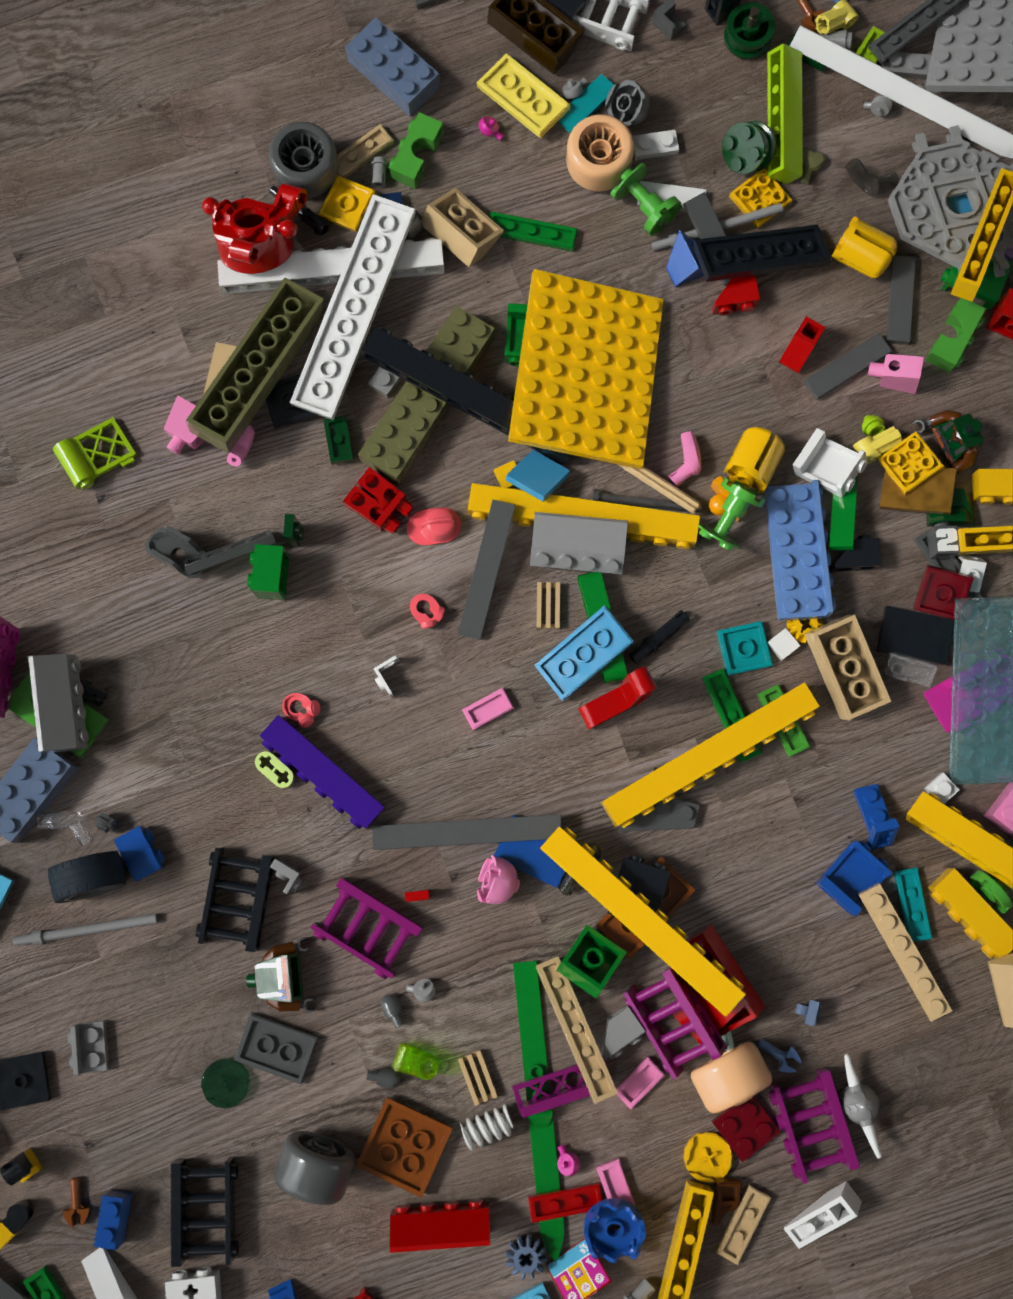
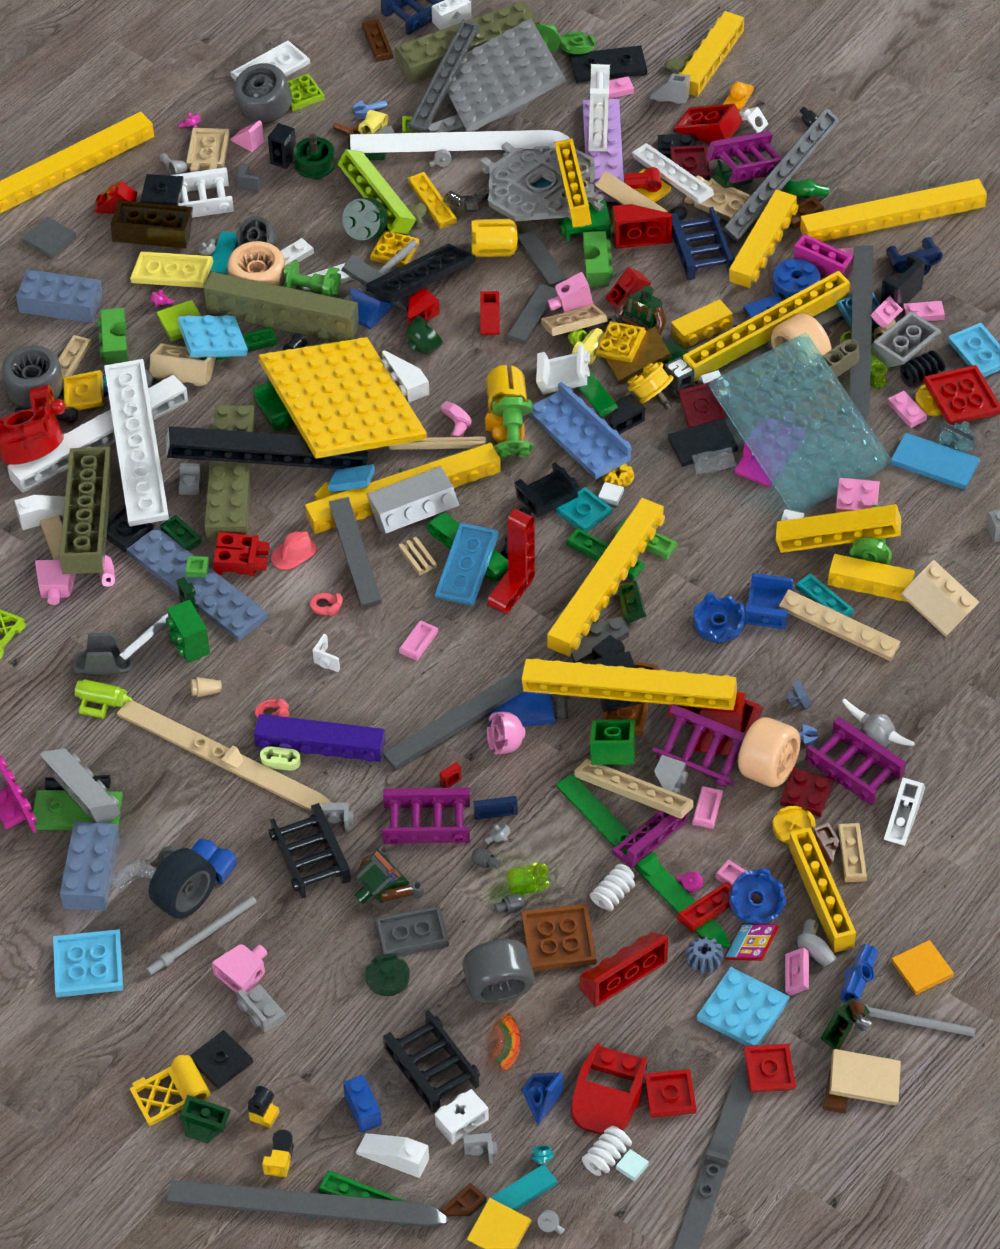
camera: 30 degrees left, 30 degrees down
(76, 1204) = (325, 1117): dark orange bar -> none
(95, 995) = (240, 967): none -> bright pink torso
(152, 591) = (101, 694): none -> lime piece
(218, 328) = (38, 507): none -> white slope
(227, 735) = (221, 755): none -> tan piece
(253, 642) = (203, 687): none -> tan cone
(289, 1230) = (508, 1041): none -> clear orange tile
(320, 509) = (214, 594): none -> sand blue plate
(324, 497) = (197, 566): none -> bright green plate
(379, 171) = (92, 360): light grey pin -> none
(436, 960) = (495, 807): none -> dark blue tile
(485, 1097) = (584, 864): tan tile -> none
(494, 168) = (169, 318): none -> lime tile
(507, 212) = (212, 336): none -> medium azure plate
(586, 267) = (297, 341): none -> black bush
(596, 216) = (281, 308): none -> olive brick
(657, 843) = (607, 648): none -> black brick
(671, 376) = (407, 377): none -> white slope
(715, 334) = (422, 337): none -> dark green cylinder
(718, 794) = (631, 601): none -> dark green plate
(721, 607) = (548, 491): none -> black panel
(807, 872) = (718, 608): none -> blue plate
(837, 154) = (432, 199): none -> yellow tile
(847, 667) = (666, 476): tan brick -> none
(879, 825) = (761, 555): blue bracket -> none
(881, 403) = (573, 320): none -> tan tile
(906, 539) = (651, 384): none -> yellow wheel
(963, 393) = (627, 284): none -> red slope

